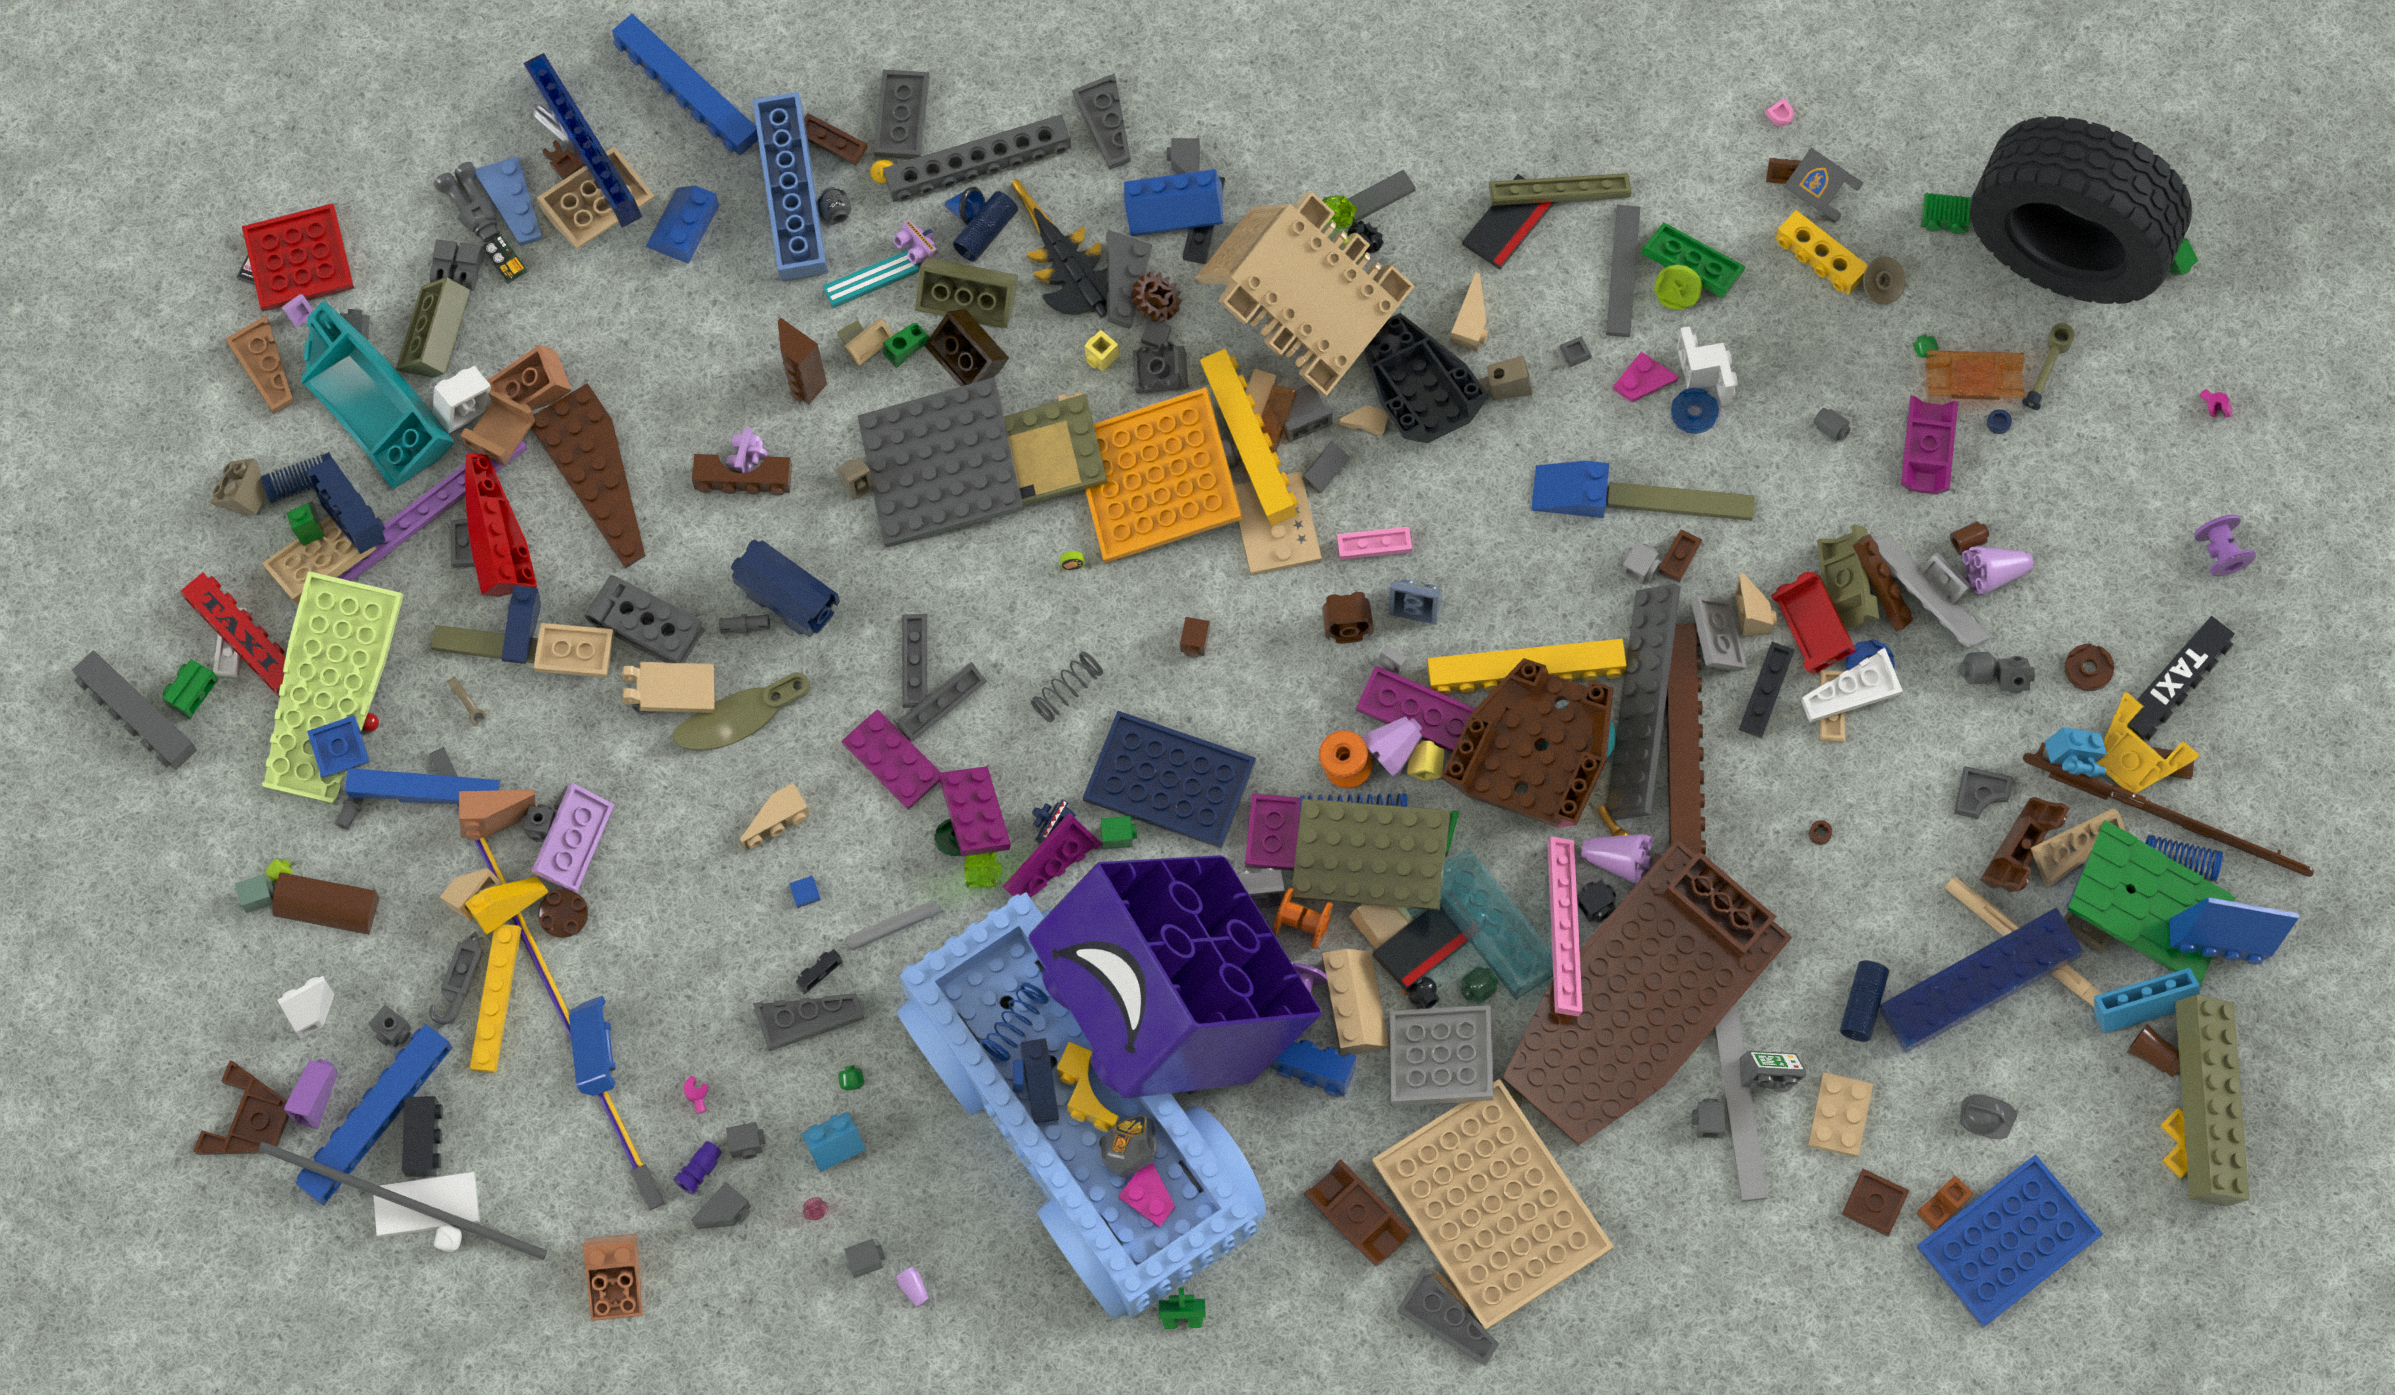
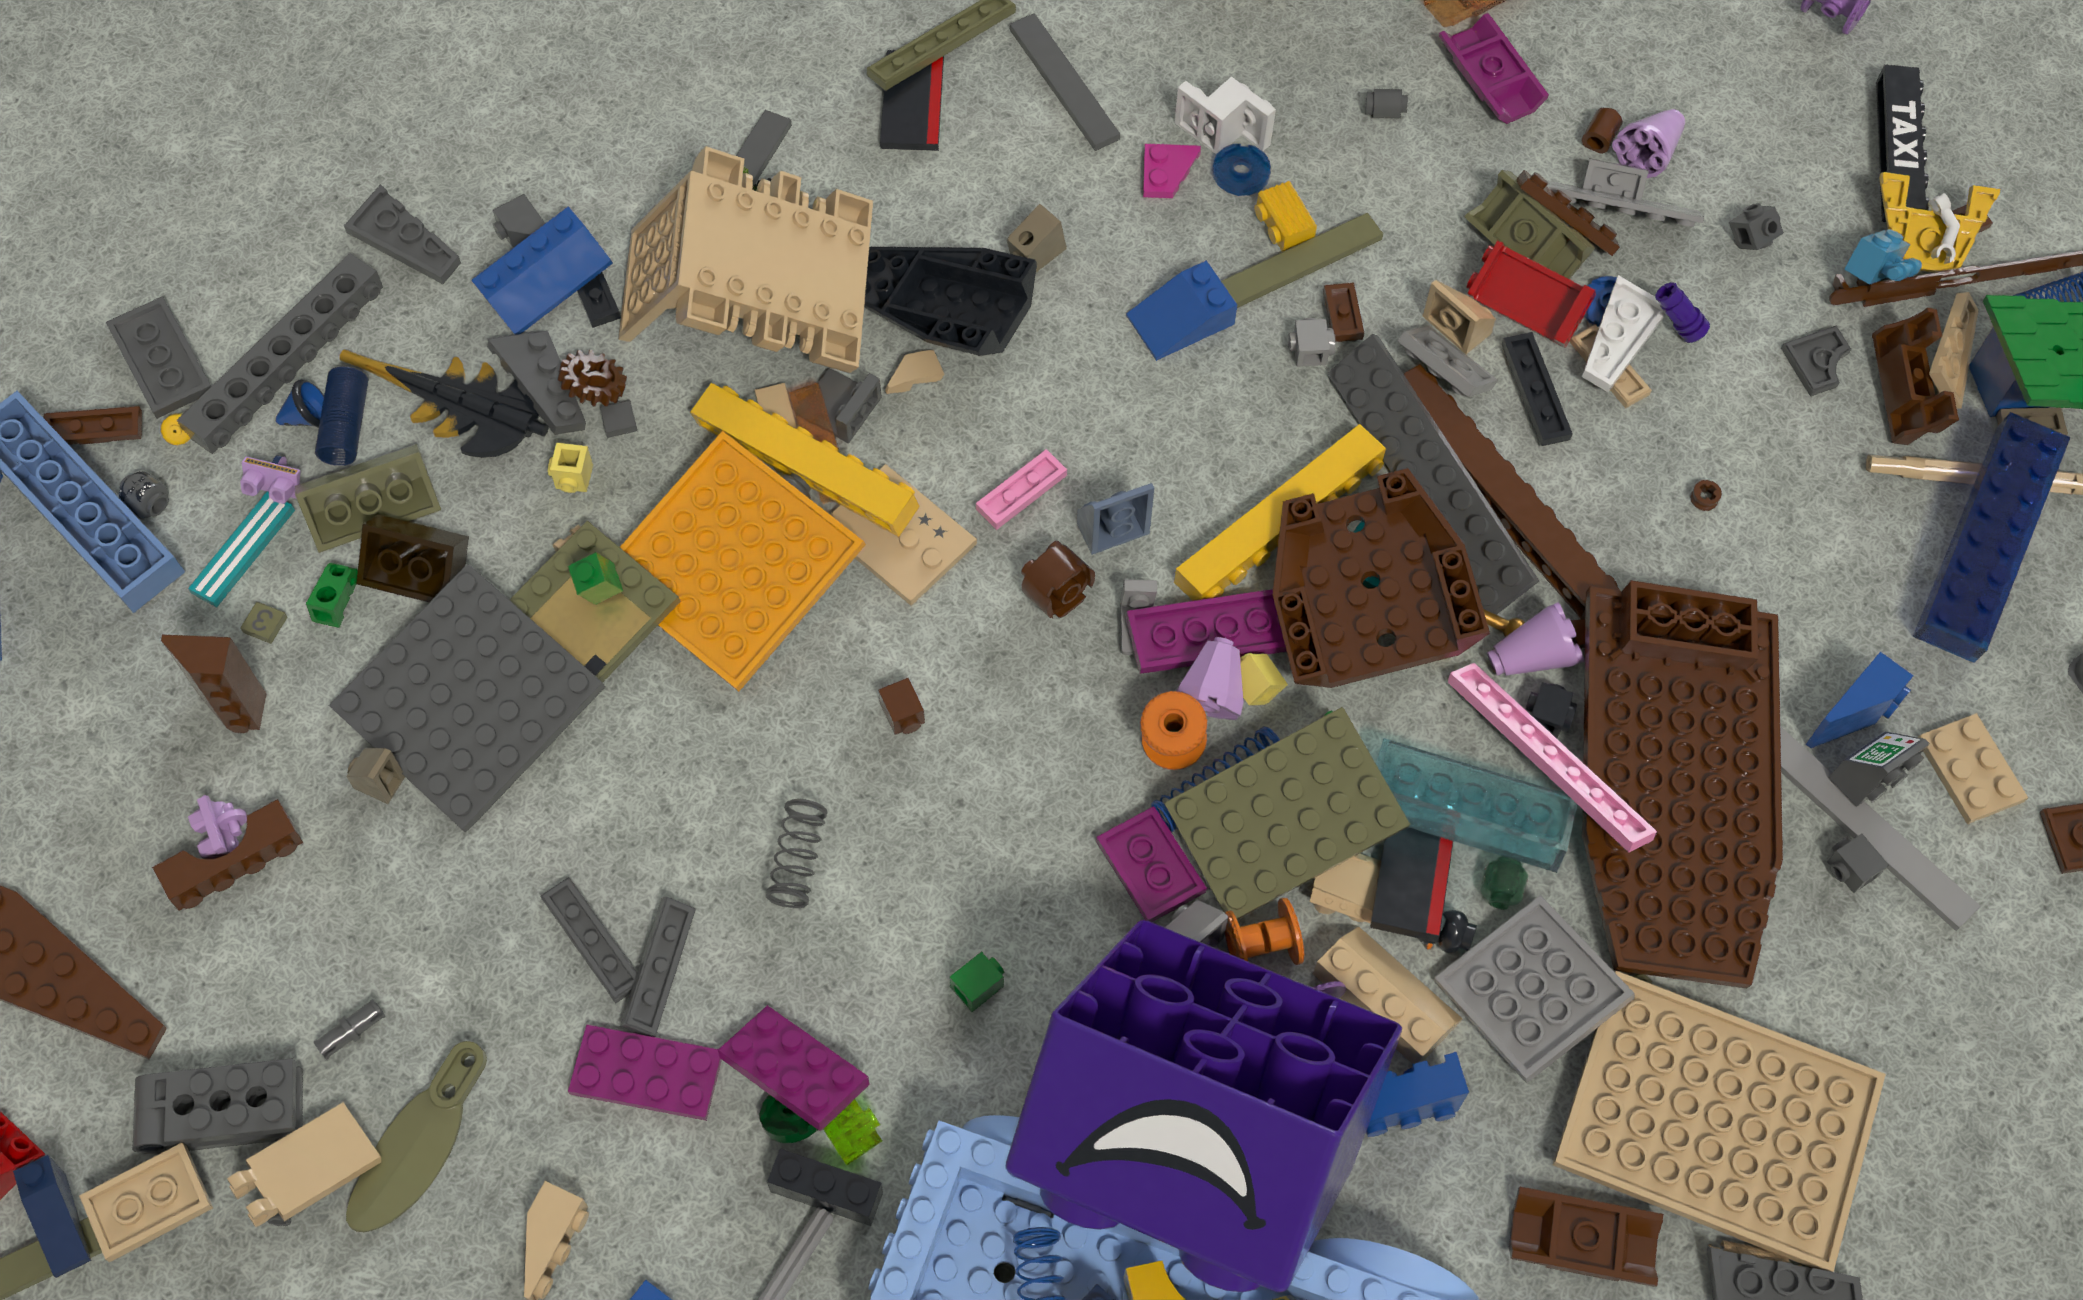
camera: 40 degrees left, 5 degrees down
(784, 588) = (373, 954): dark blue brick -> none
(868, 342) = (286, 617): tan tile -> none
(945, 891) = (825, 1187): none -> black brick
(1057, 814) = (886, 1019): dark blue hips -> none
(1059, 850) = (925, 1049): magenta wing -> none
(1062, 436) = (595, 578): none -> green brick
(1072, 560) = (699, 711): tile -> none
(1160, 368) = (649, 449): dark grey slope -> none
(1169, 779) = (990, 882): dark blue plate -> none
(1325, 467) = (909, 444): dark grey tile -> none
(1471, 322) = (949, 206): tan slope -> none
(1575, 351) = (1078, 182): dark grey tile -> none
(1674, 247) = (1127, 31): green tile -> none
(1678, 287) = (1135, 60): lime tile -> none
(1695, 463) = (1285, 216): none -> yellow brick
(1796, 1026) = (1870, 697): none -> blue slope
(1863, 1001) = (1902, 637): dark blue piece -> none
(1903, 699) = (1686, 318): none -> dark purple axle
(1979, 668) = (1717, 242): dark grey head -> none
(1999, 421) = (1535, 13): dark blue tile -> none
(2085, 680) = (1811, 196): reddish brown tile -> none
(2147, 739) = (1941, 206): none -> white arm

